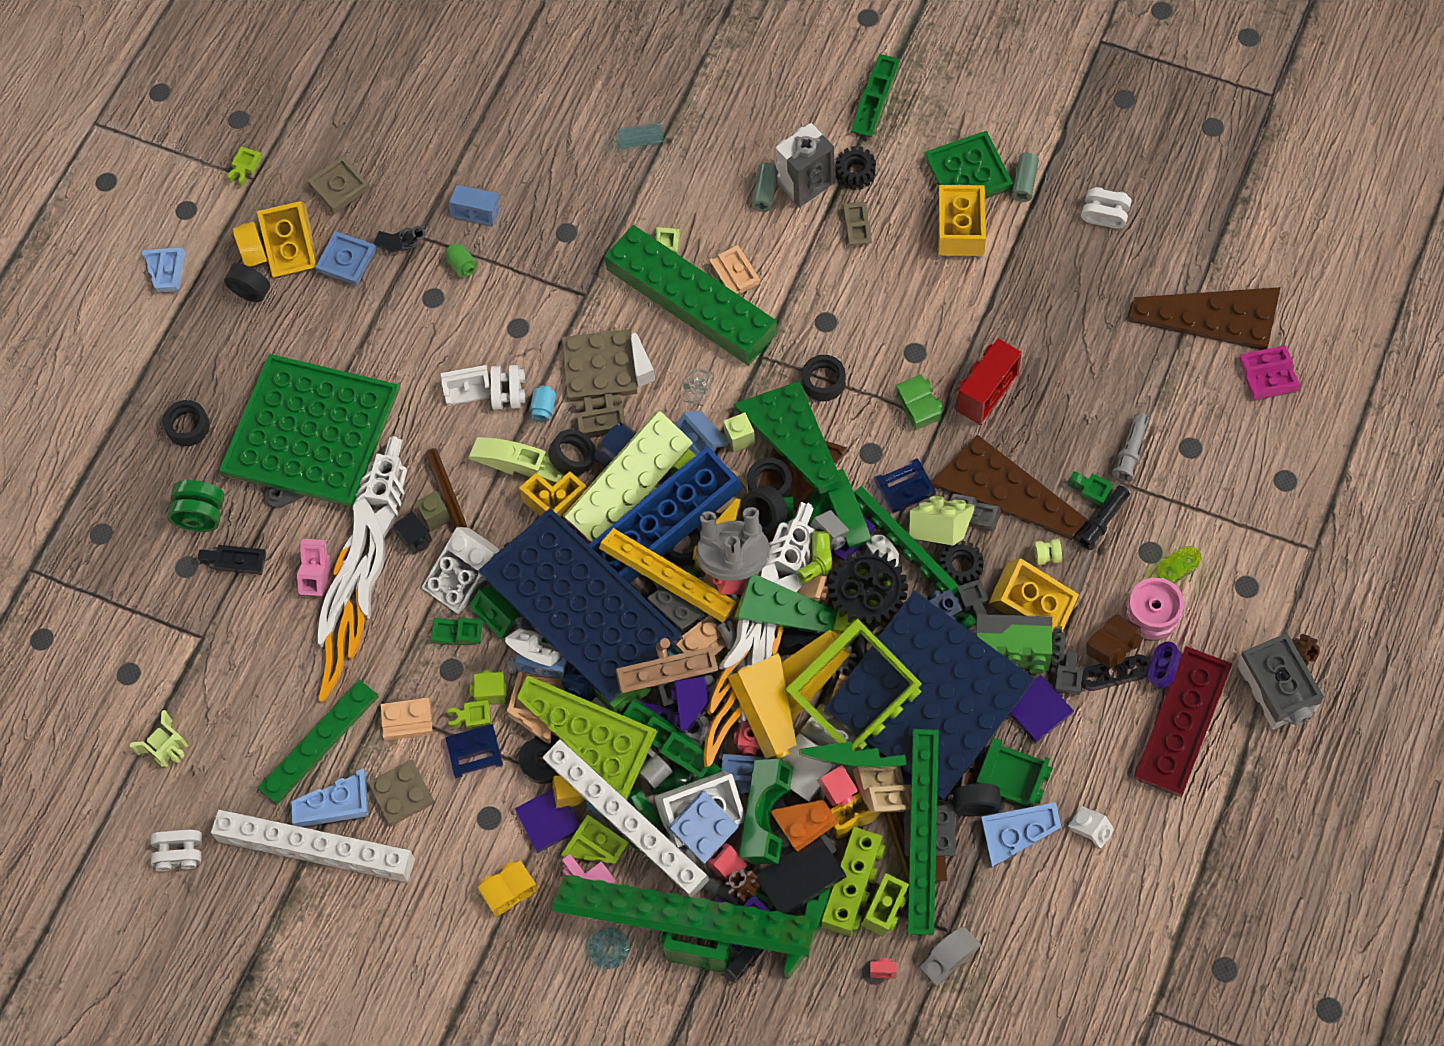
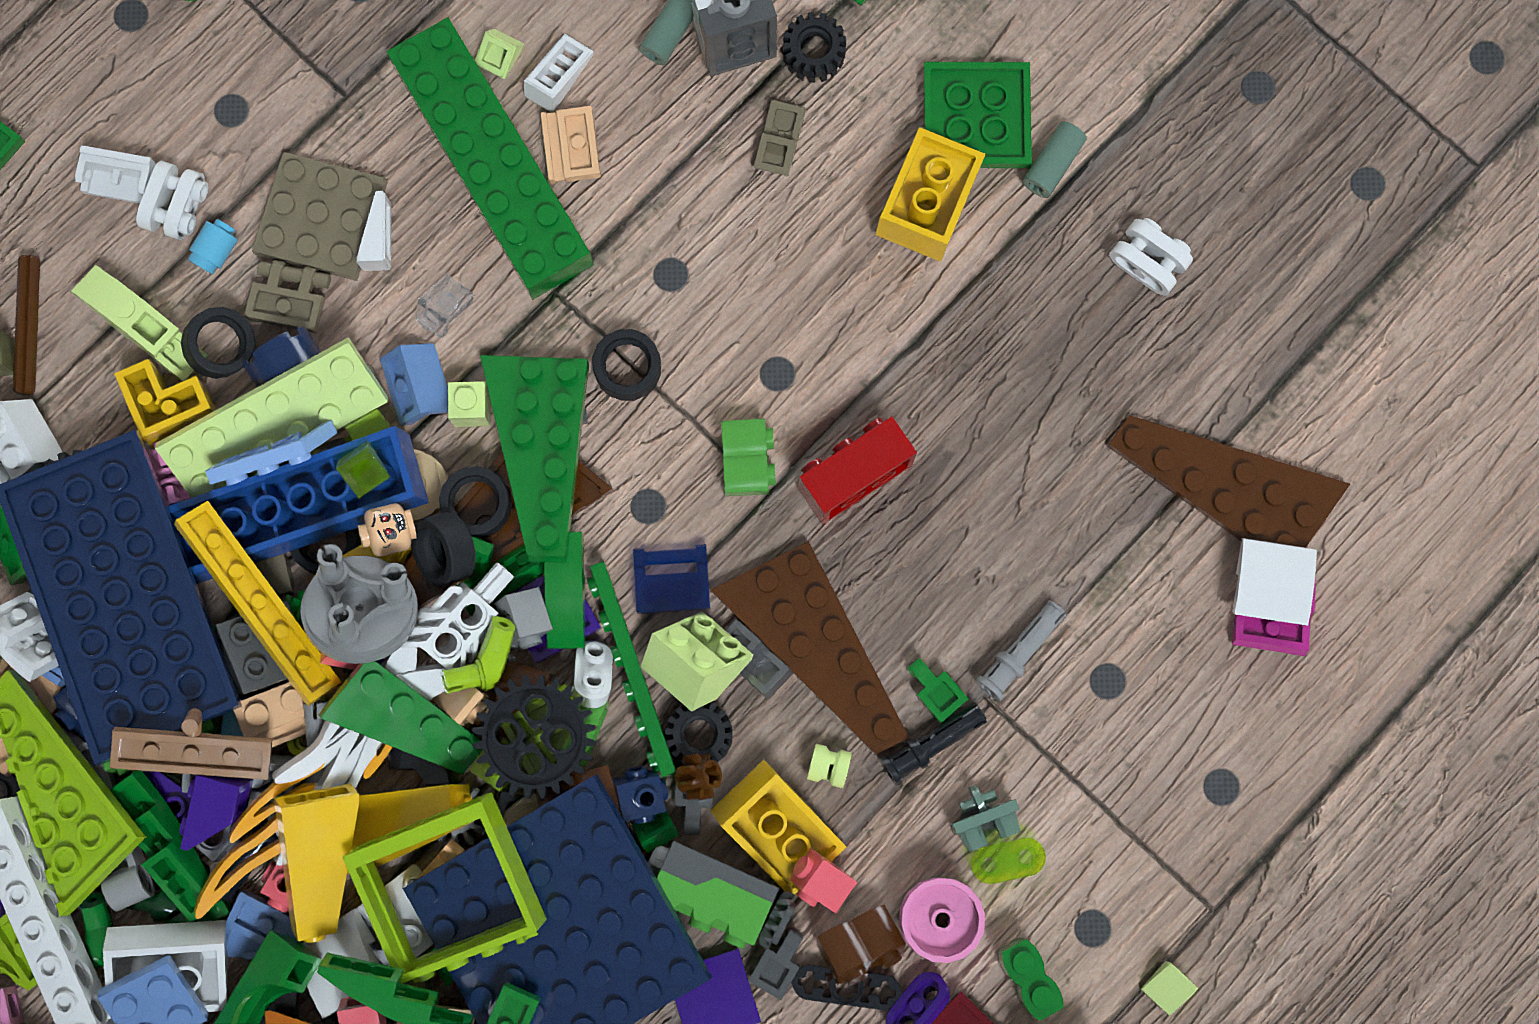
camera: 15 degrees right, 15 degrees up
(638, 493) = (265, 460): none -> light blue wing
(700, 475) = (362, 469): none -> clear neon green slope
(706, 249) = (545, 90): none -> white slope
(729, 503) = (387, 529): none -> light nougat head
(973, 580) = (698, 776): none -> reddish brown gear
(1073, 614) = (821, 881): none -> coral brick
(1148, 553) = (1002, 815): none -> sand green hips
(1226, 625) = (1034, 989): none -> green brick
(1262, 353) = (1275, 581): none -> white slope
(1308, 599) = (1169, 988): none -> yellowish green slope

